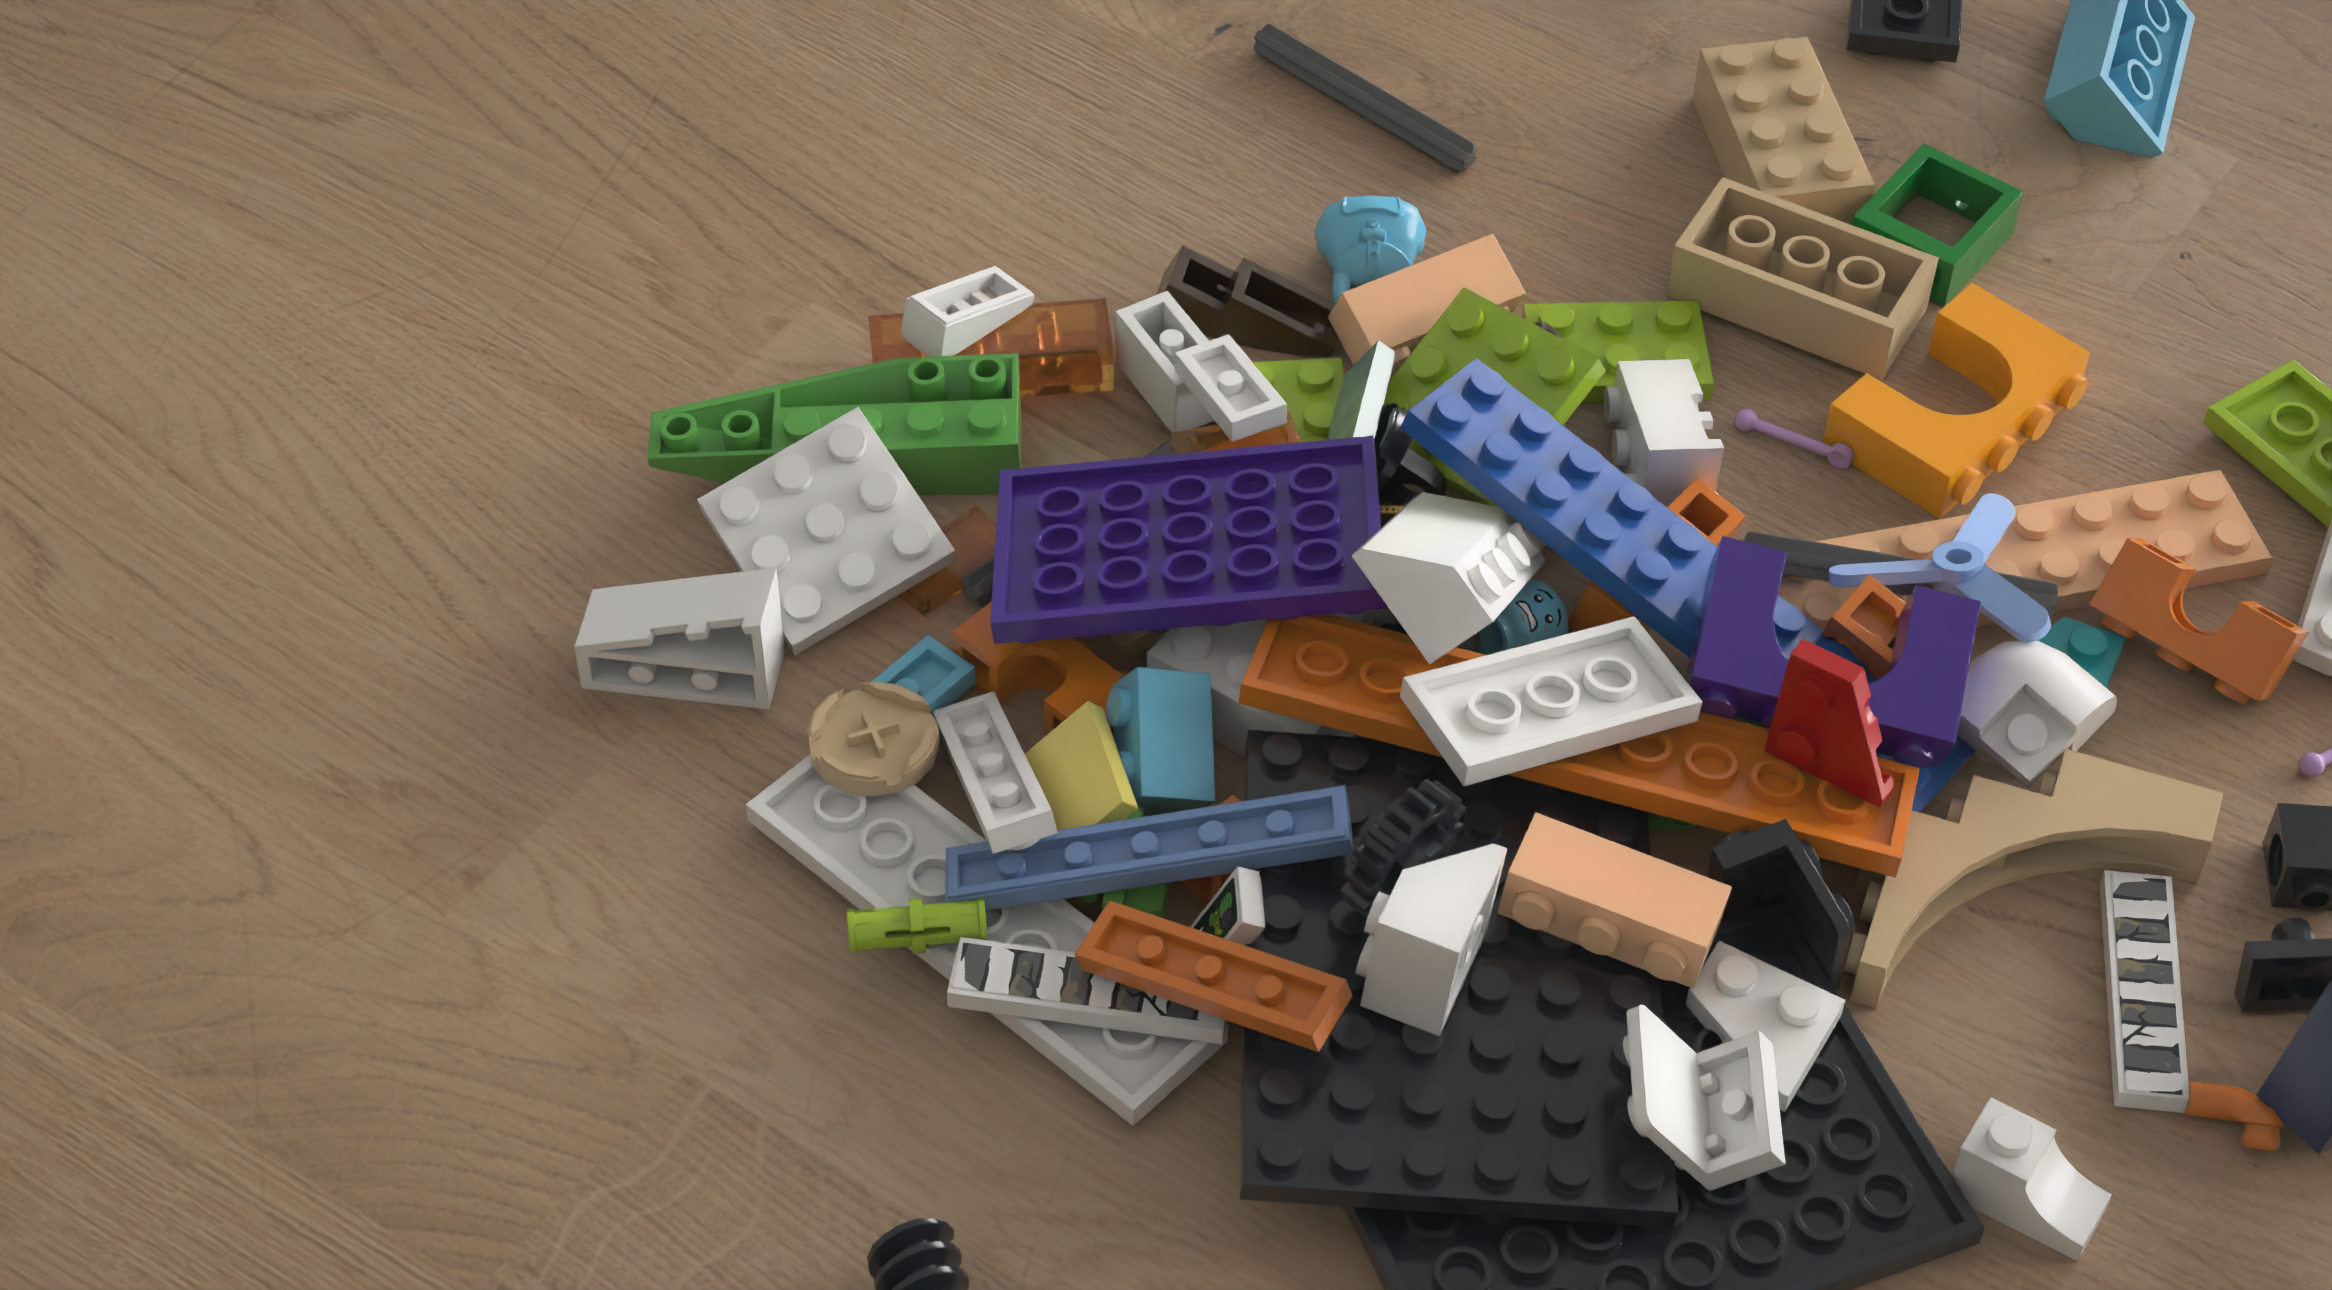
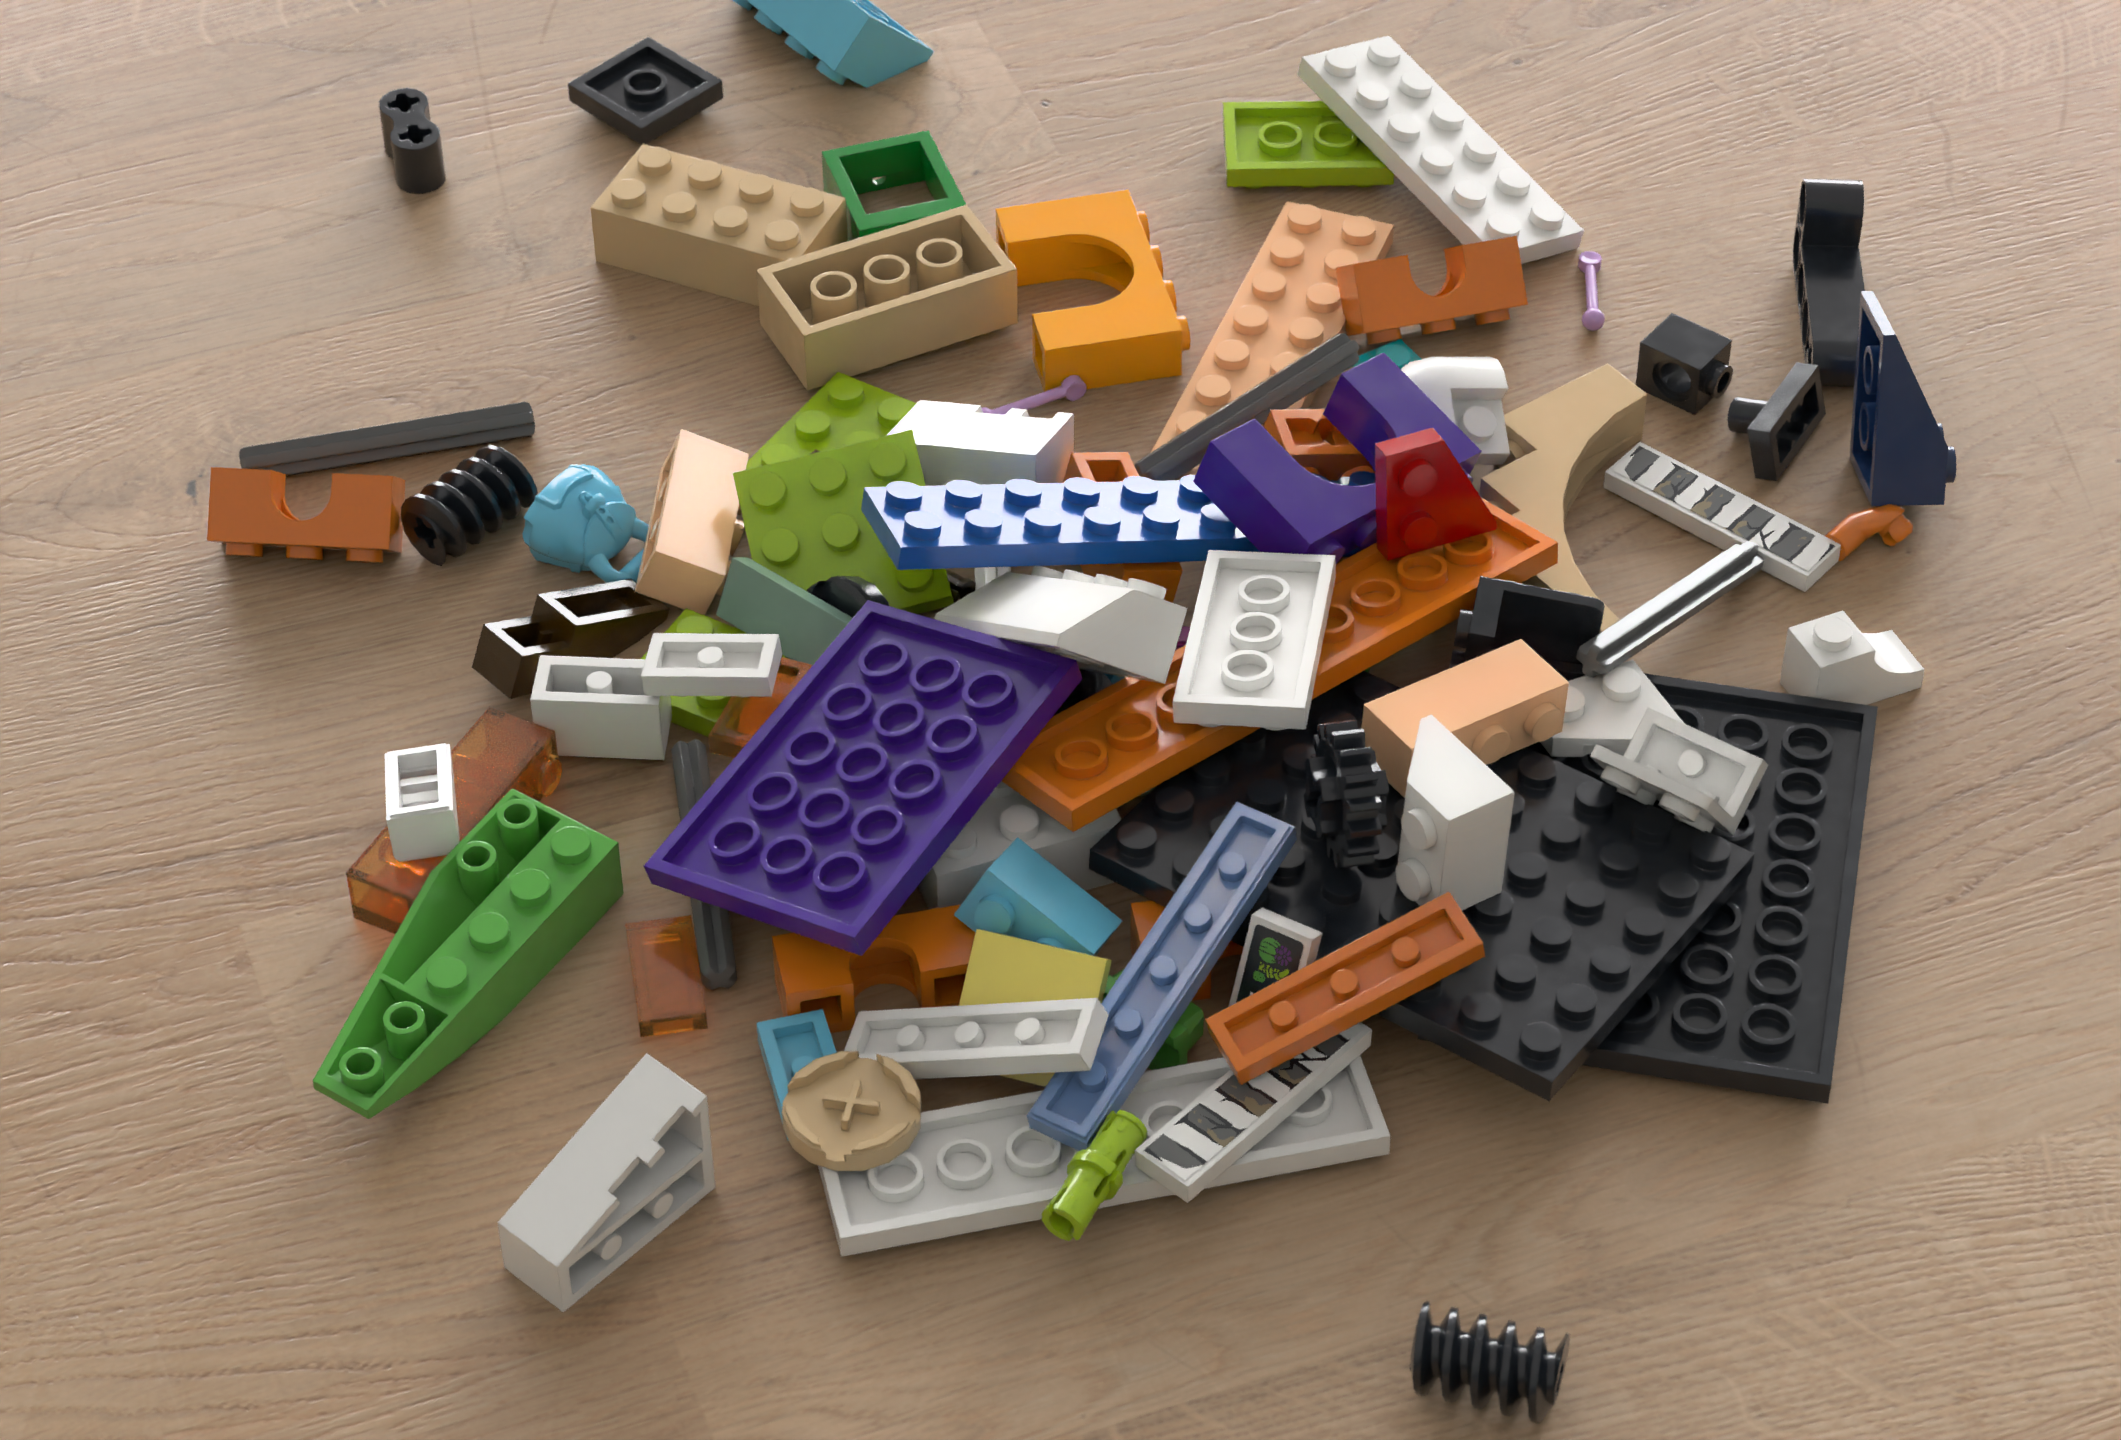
camera: 55 degrees left, 5 degrees down
(832, 524) = (569, 1017): white plate -> none
(1248, 120) = (252, 513): none -> orange arch
(1325, 170) = (467, 503): none -> black piece
(1949, 999) = (1669, 609): none -> dark grey axle
(1961, 570) = (1299, 366): light blue piece -> none

